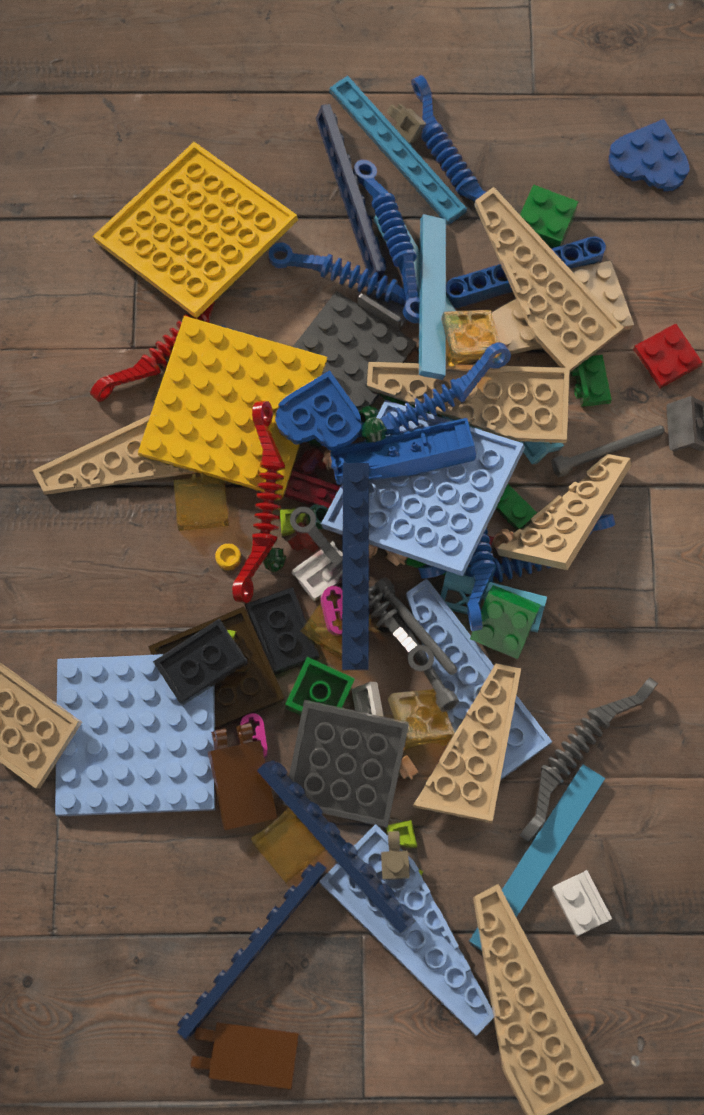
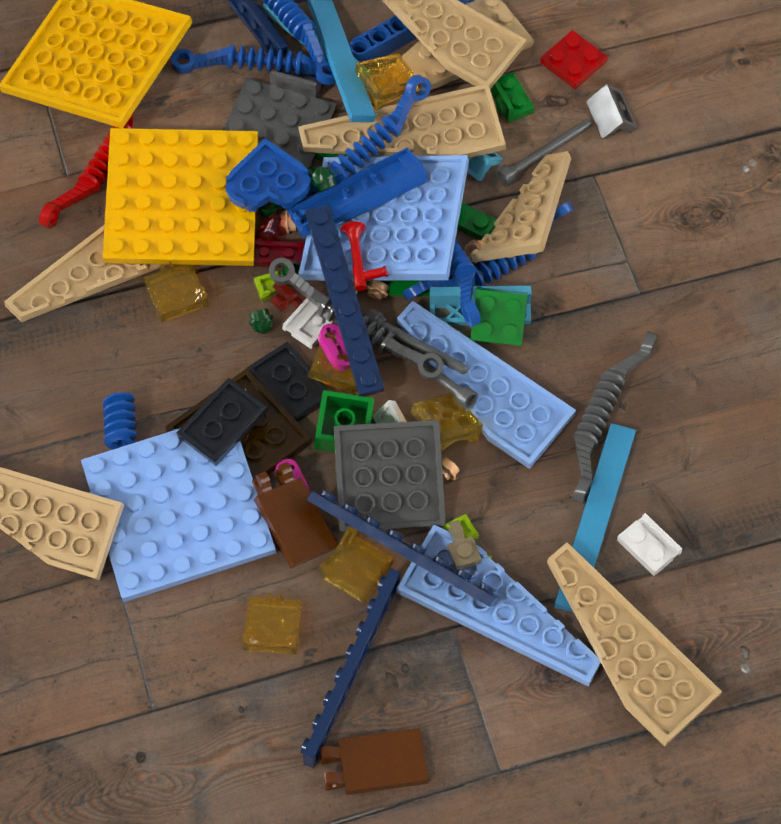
camera: 15 degrees left, 10 degrees down
(104, 627) = (119, 420): none -> blue piece
(190, 882) = (272, 625): none -> clear yellow piece
(228, 556) = (216, 332): yellow tile -> none
(262, 542) = (243, 272): red piece -> none
(378, 546) = (353, 231): none -> red piece
(472, 764) = (508, 445): tan wing -> none

